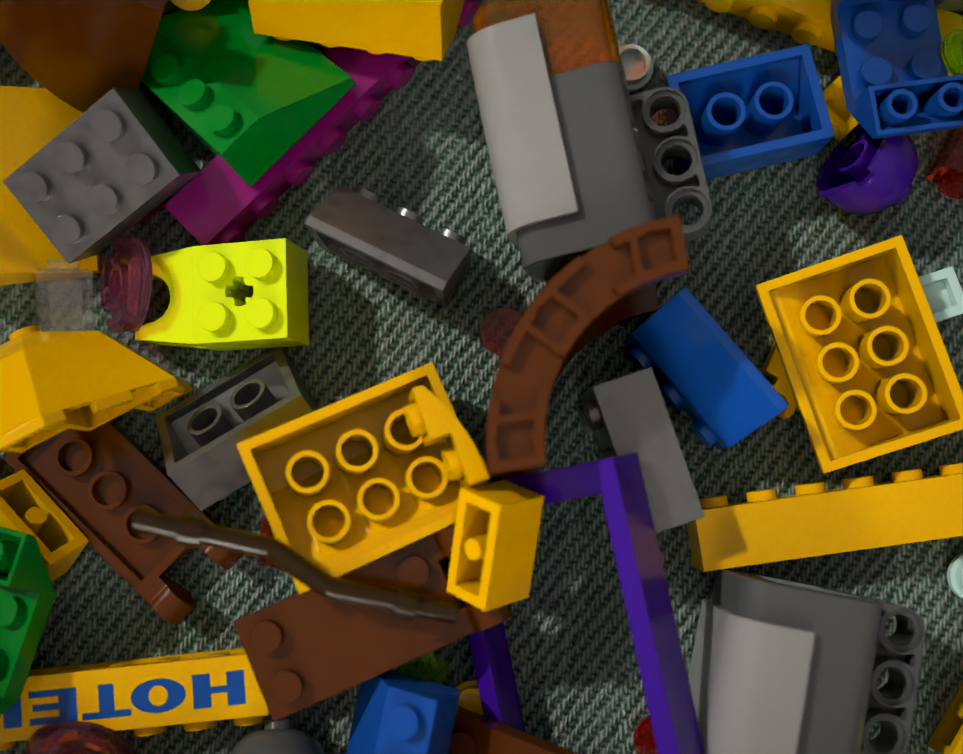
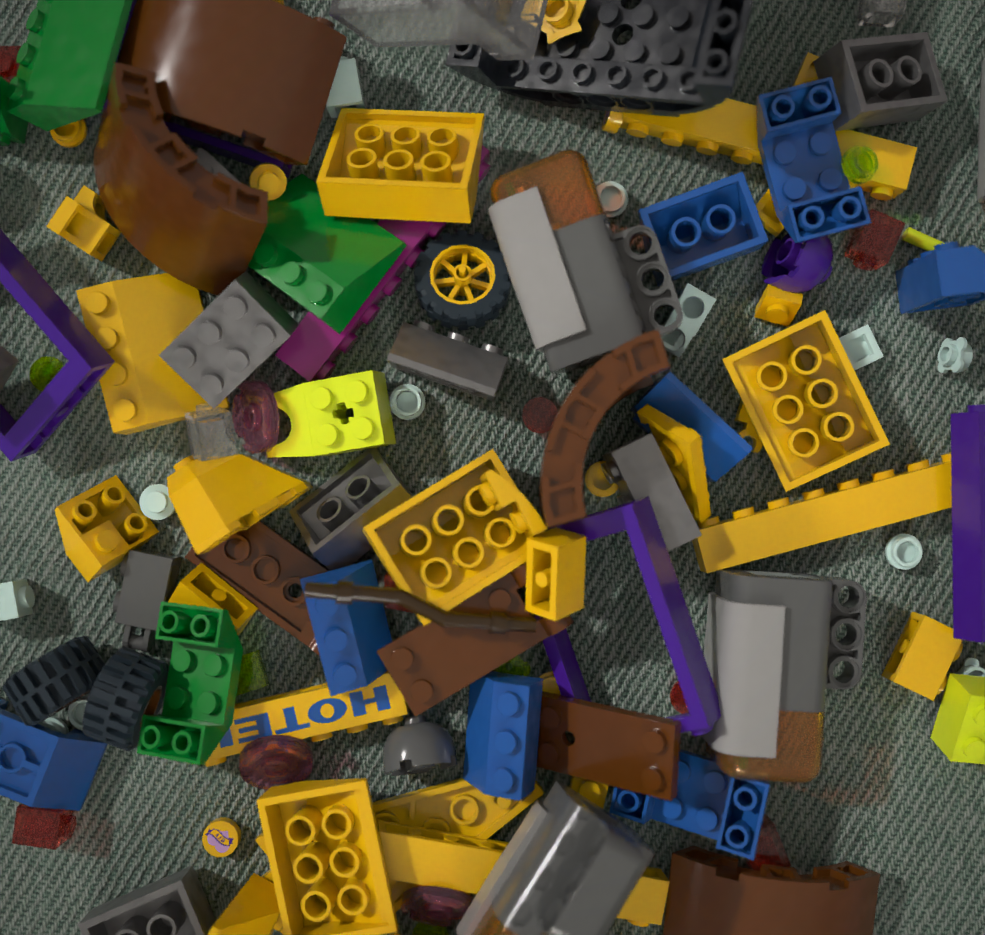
camera: 10 degrees left, 5 degrees up
(65, 629) = (252, 673): none -> clear neon green plate
(201, 590) = (348, 633): none -> blue slope
(332, 293) = (407, 402): none -> light aqua plate
(417, 110) = (465, 248): none -> black wheel
(569, 430) = (597, 482): none -> yellow tile
(693, 407) = (684, 458): none -> yellow wing
(727, 216) = (695, 308): none -> light aqua leg
(835, 227) = (778, 305): none -> yellow plate

